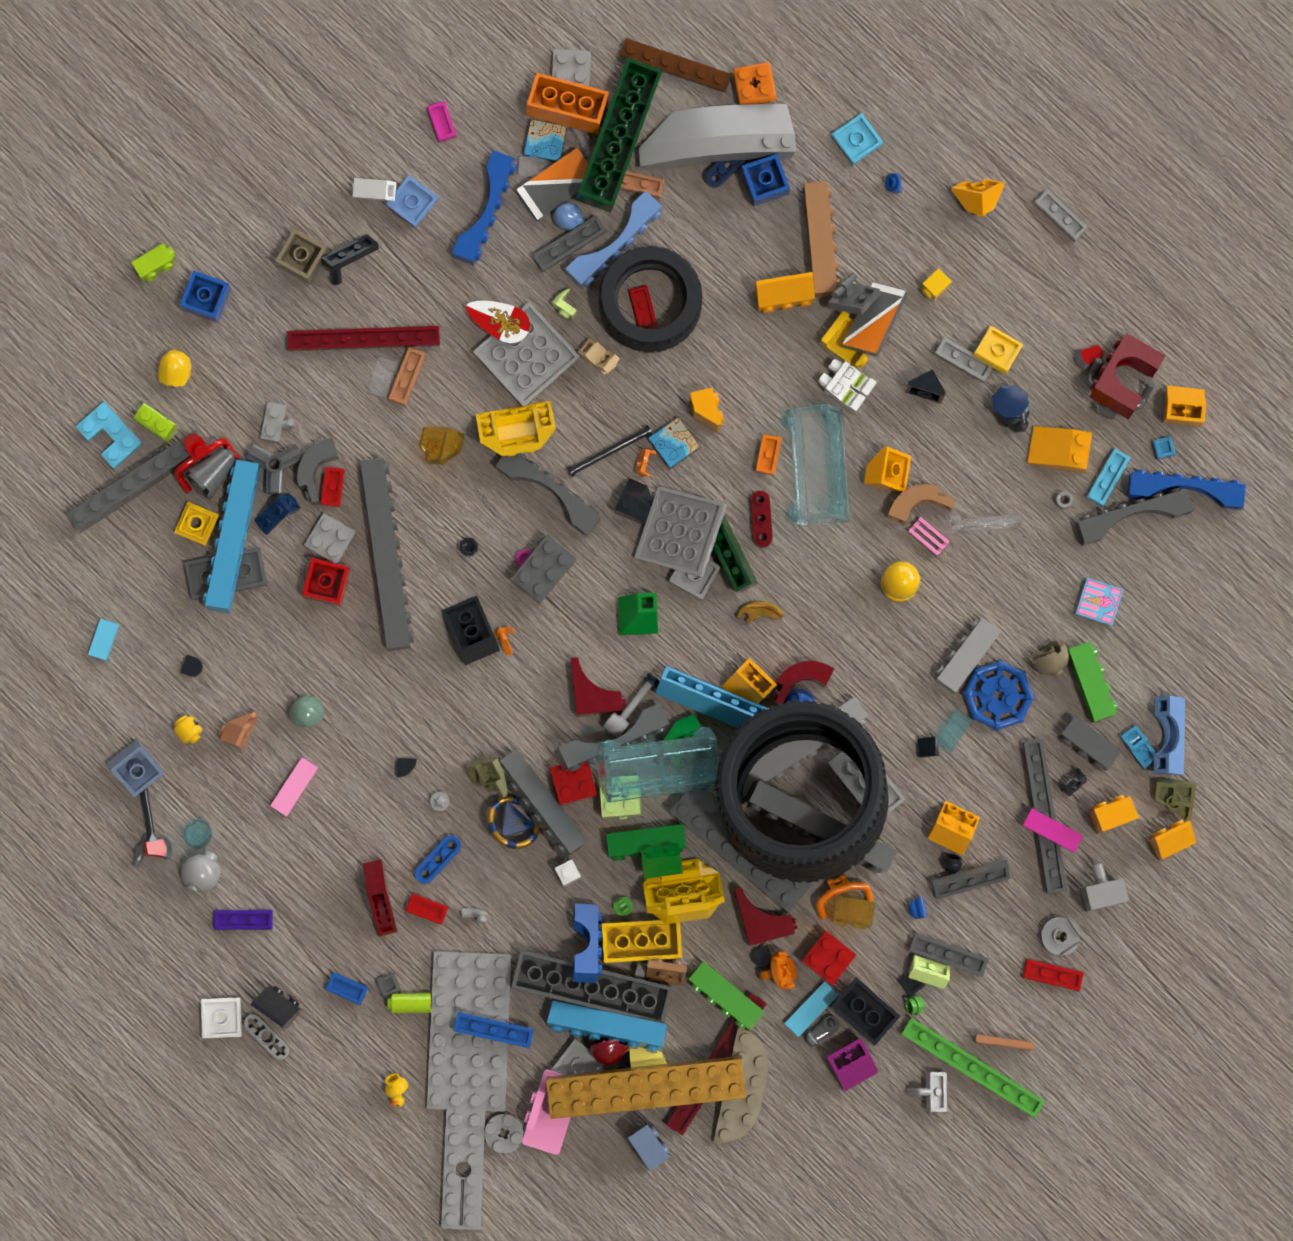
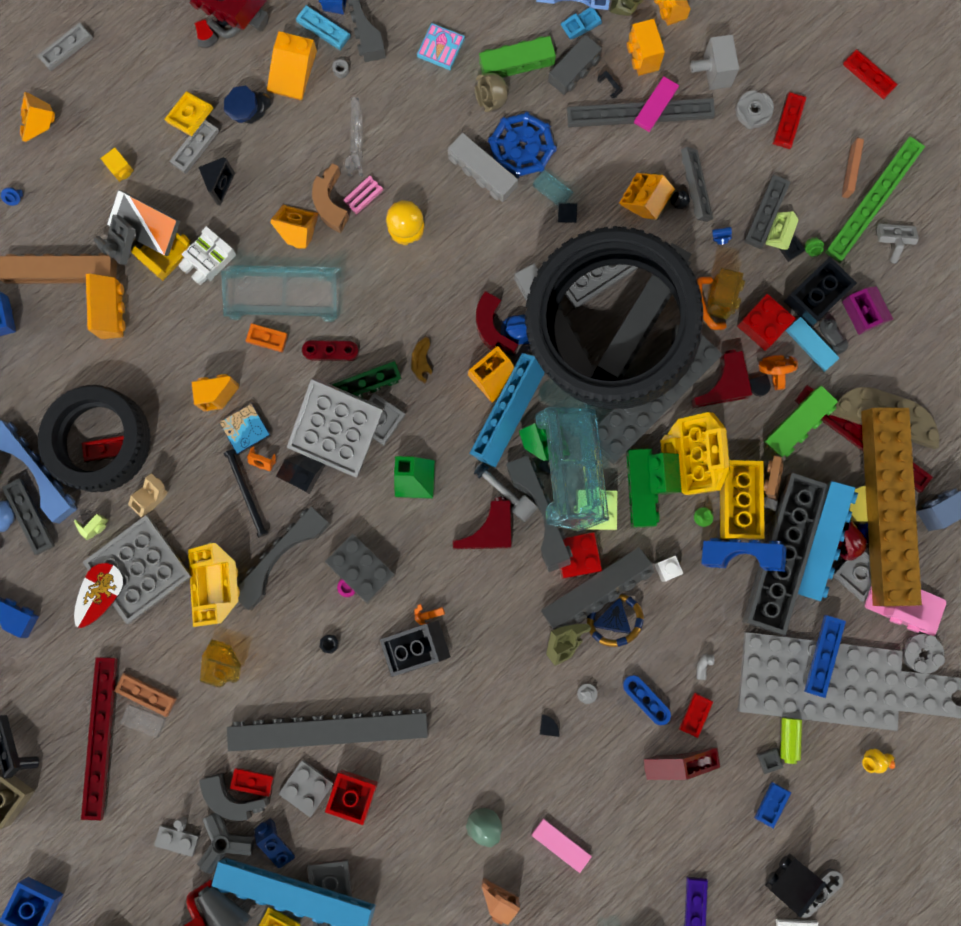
camera: 80 degrees left, 0 degrees up
(1113, 1059) = (870, 74): none -> red tile

